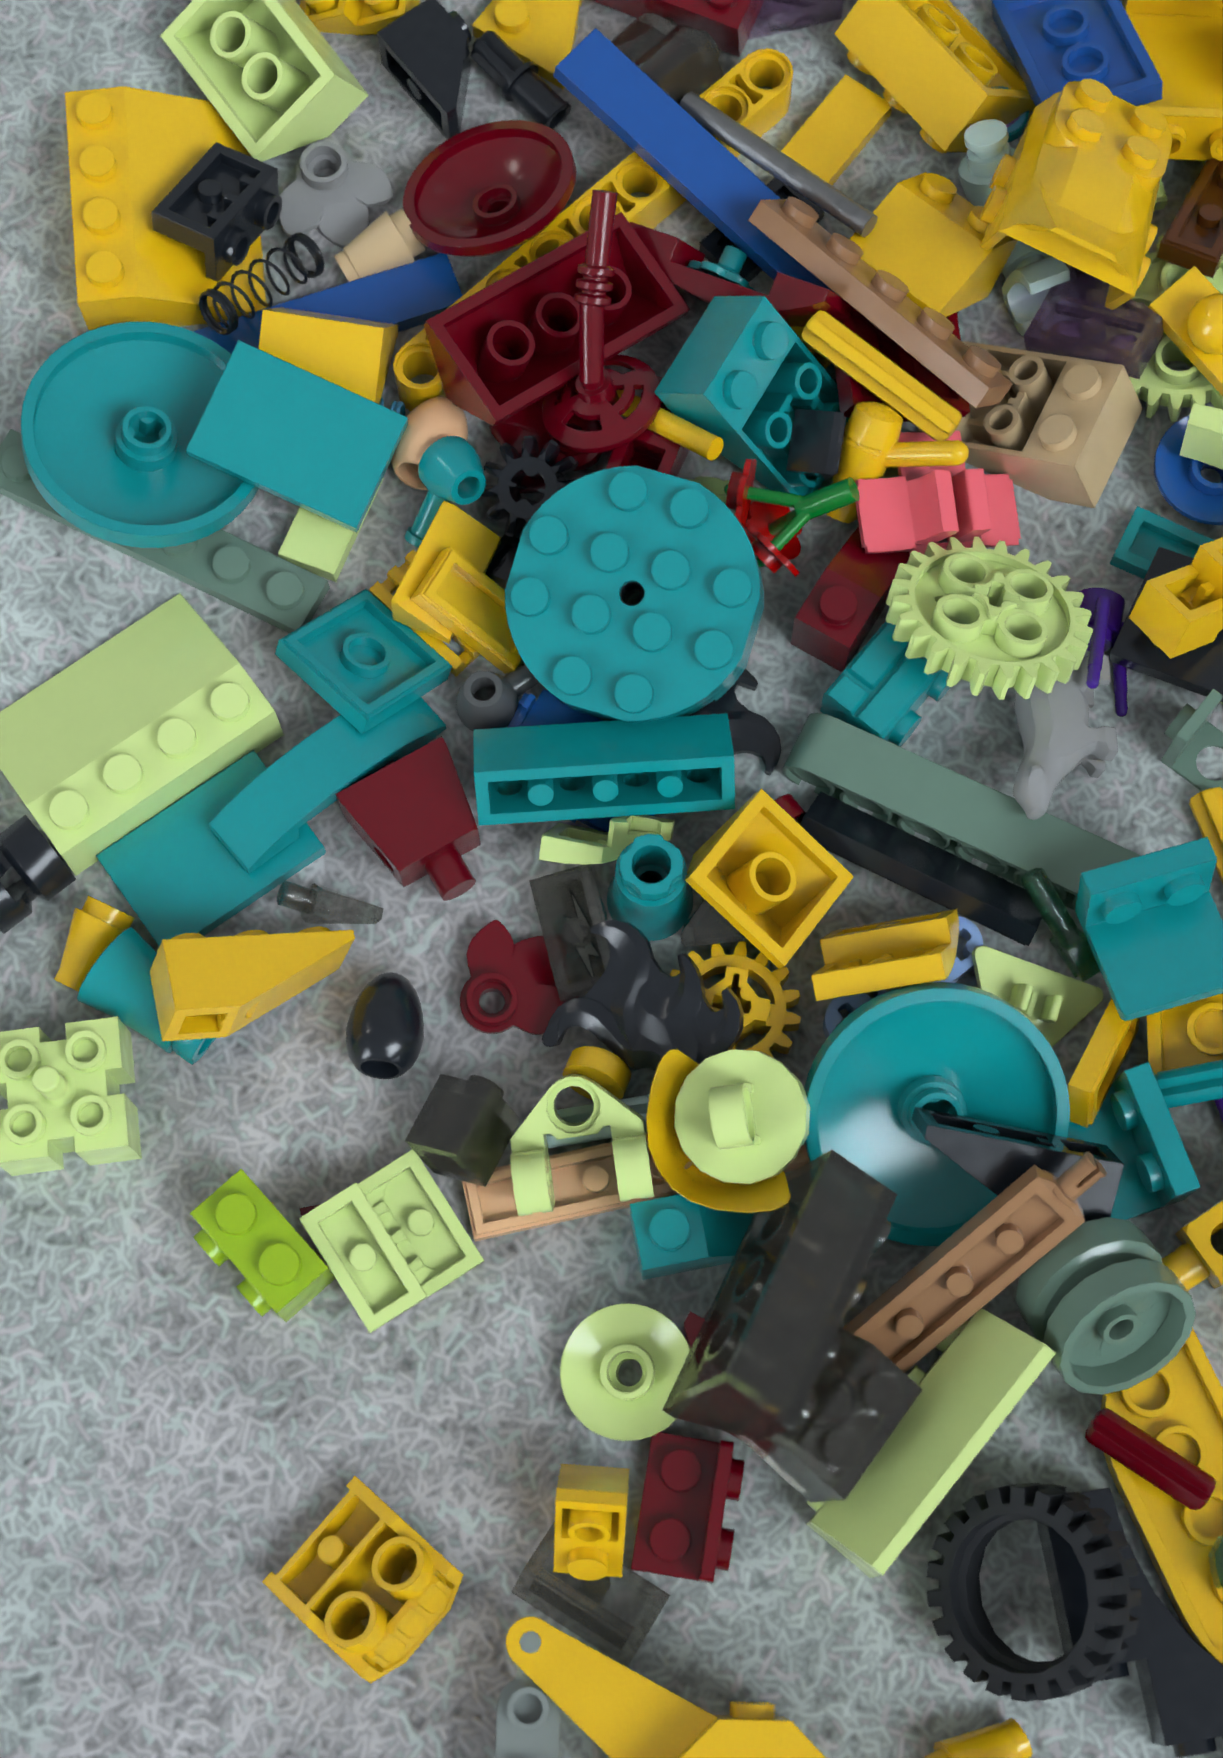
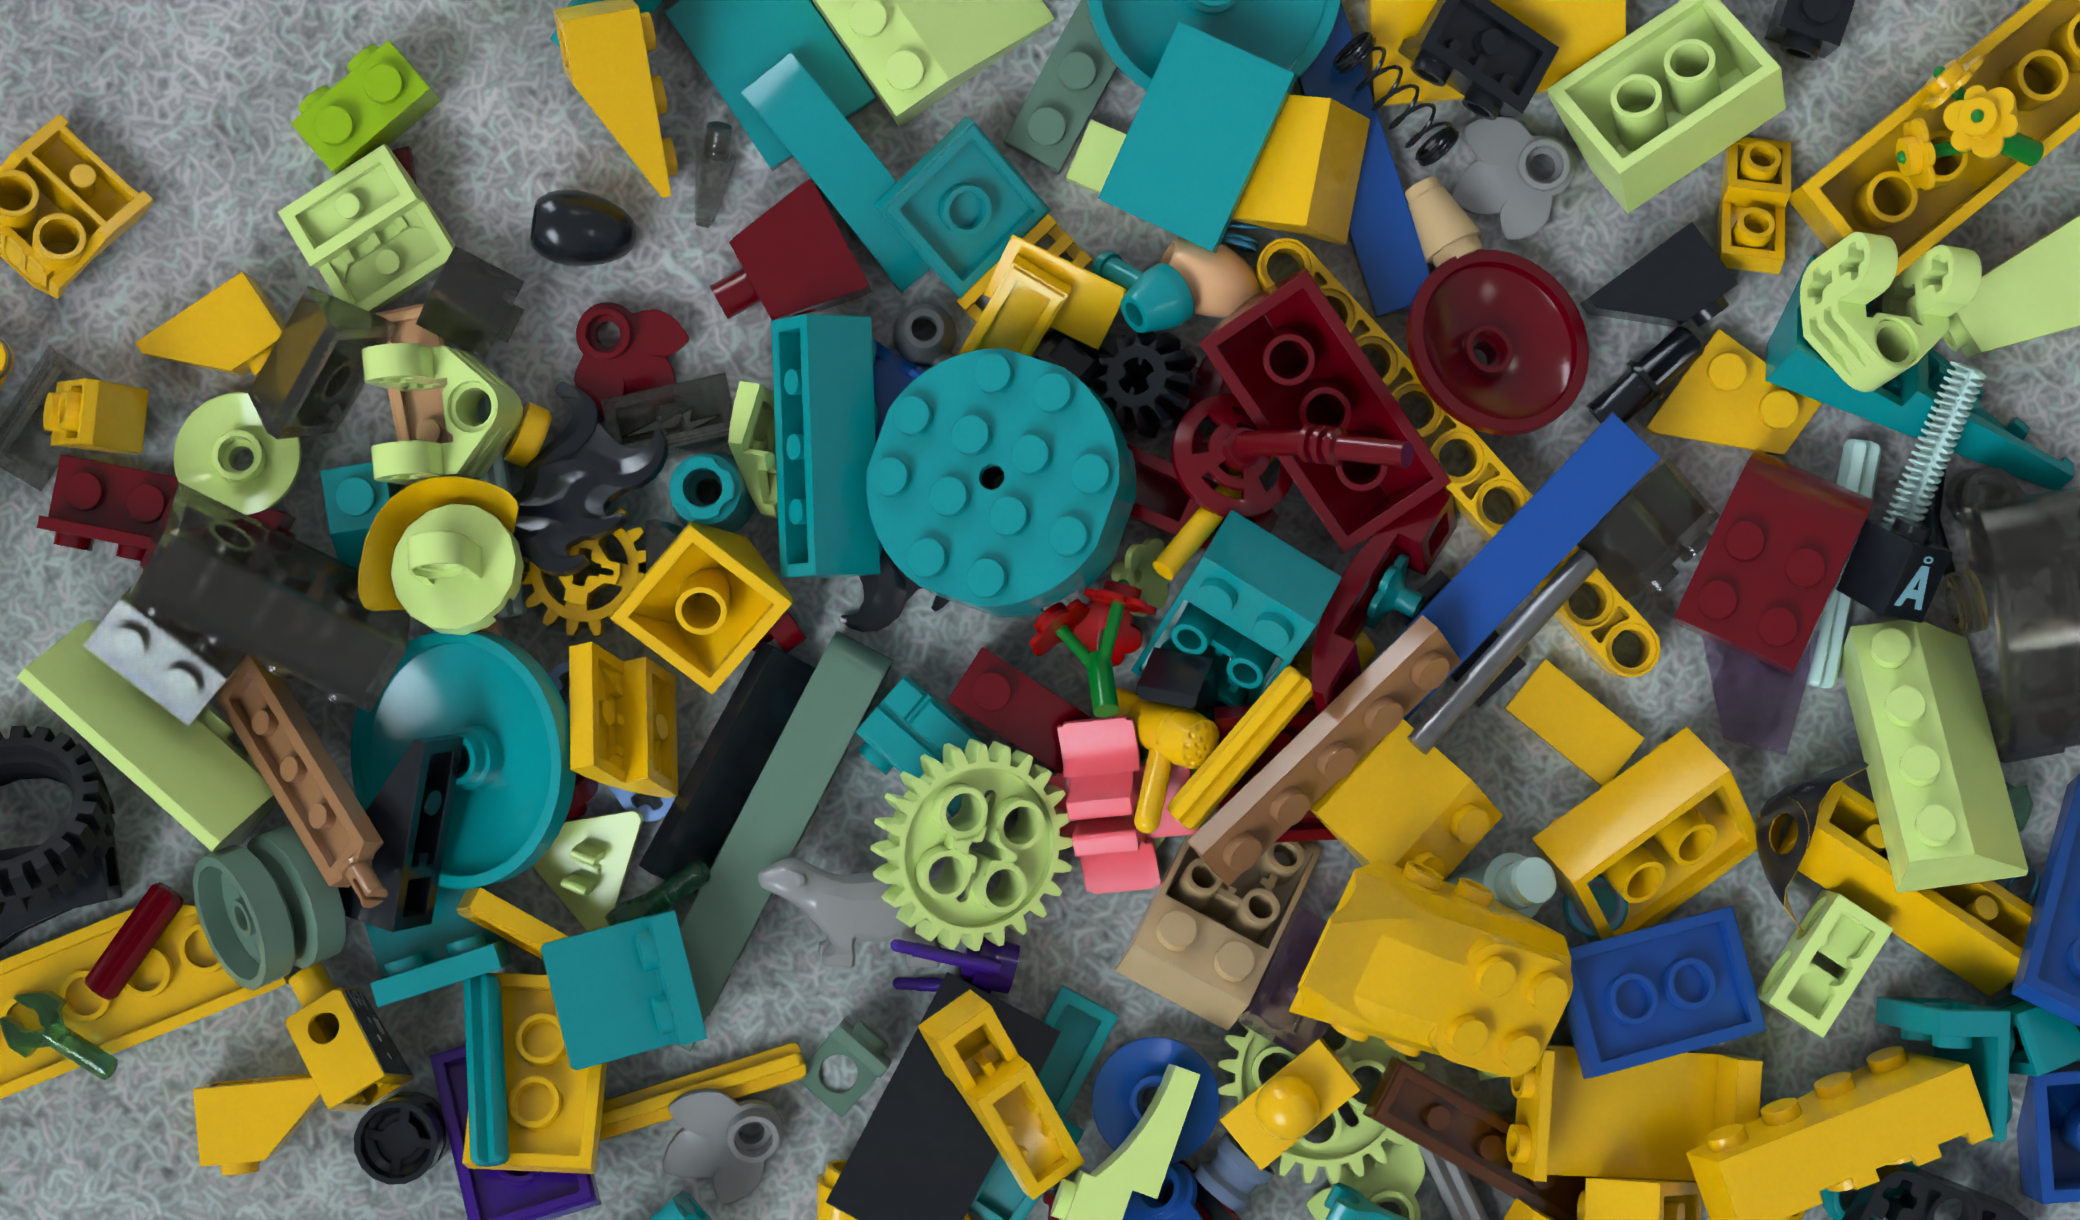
camera: 90 degrees right, 15 degrees up
(498, 1389) = (221, 332): none -> yellow slope
(529, 1286) = (316, 366): none -> clear smoke slope

